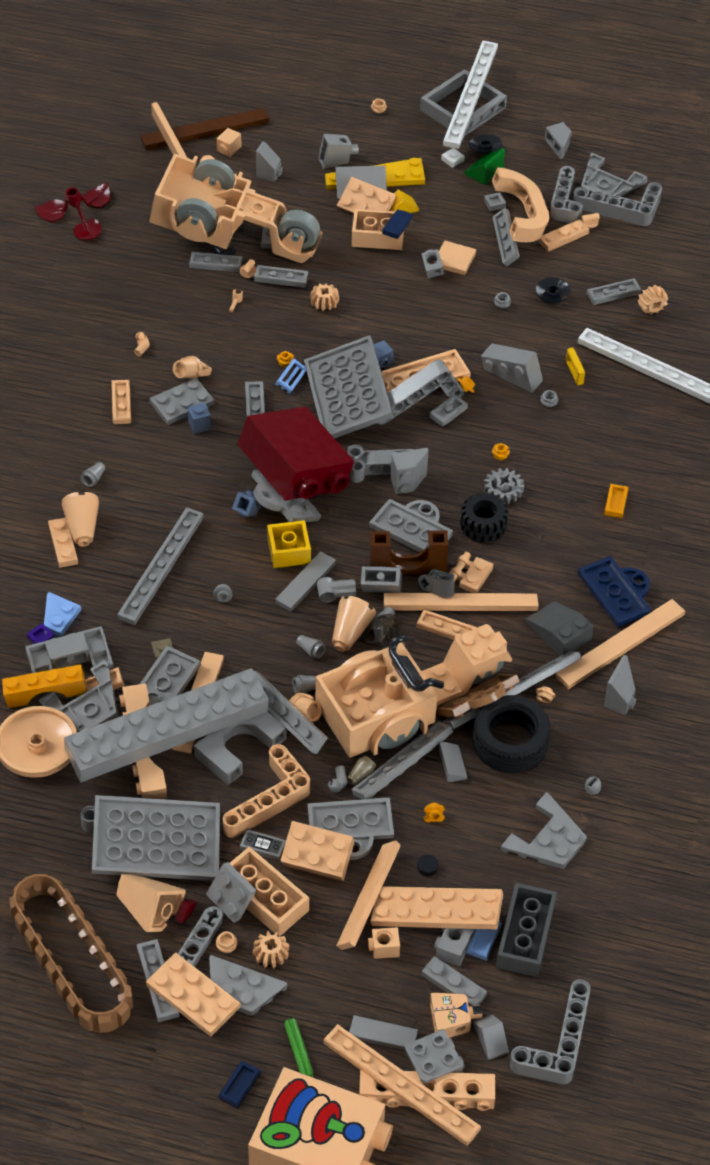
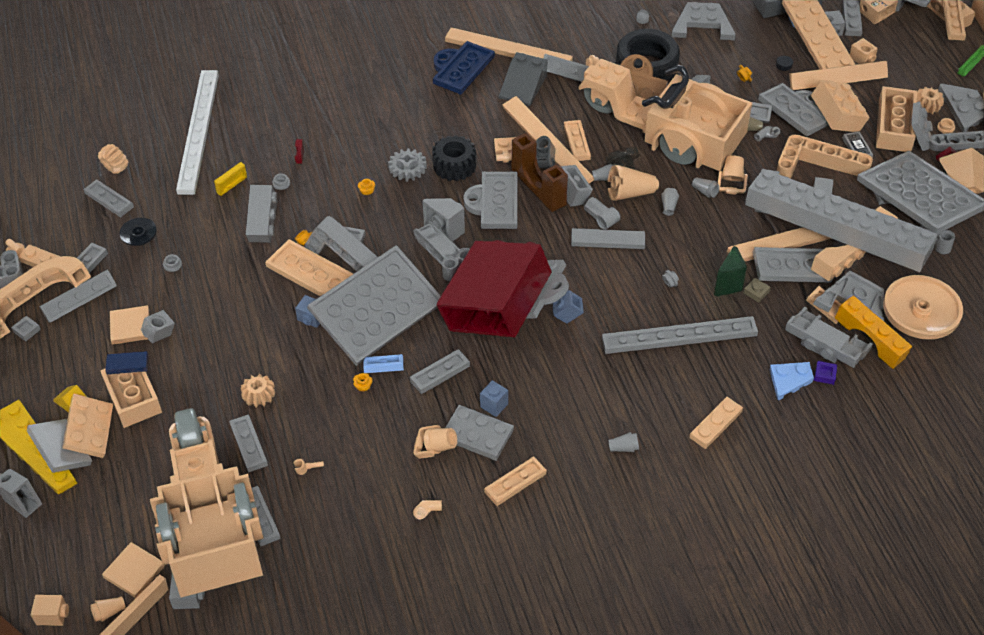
camera: 120 degrees left, 0 degrees up
(81, 516) = (683, 414): light nougat cone -> none
(186, 627) = (731, 274): none -> clear green slope
(248, 270) = (257, 477): light nougat plate -> none
(267, 163) = (75, 544): light grey slope -> none
(289, 544) = (587, 257): yellow brick -> none
(292, 718) = (752, 168): light grey plate -> none
(382, 1033) = (919, 31): light grey tile -> none
(543, 255) = (92, 256): none -> light grey plate
(579, 424) = (300, 151): none -> dark red tile
(616, 501) = (367, 103): light orange tile -> none
(620, 688) = (554, 27): light grey slope -> none

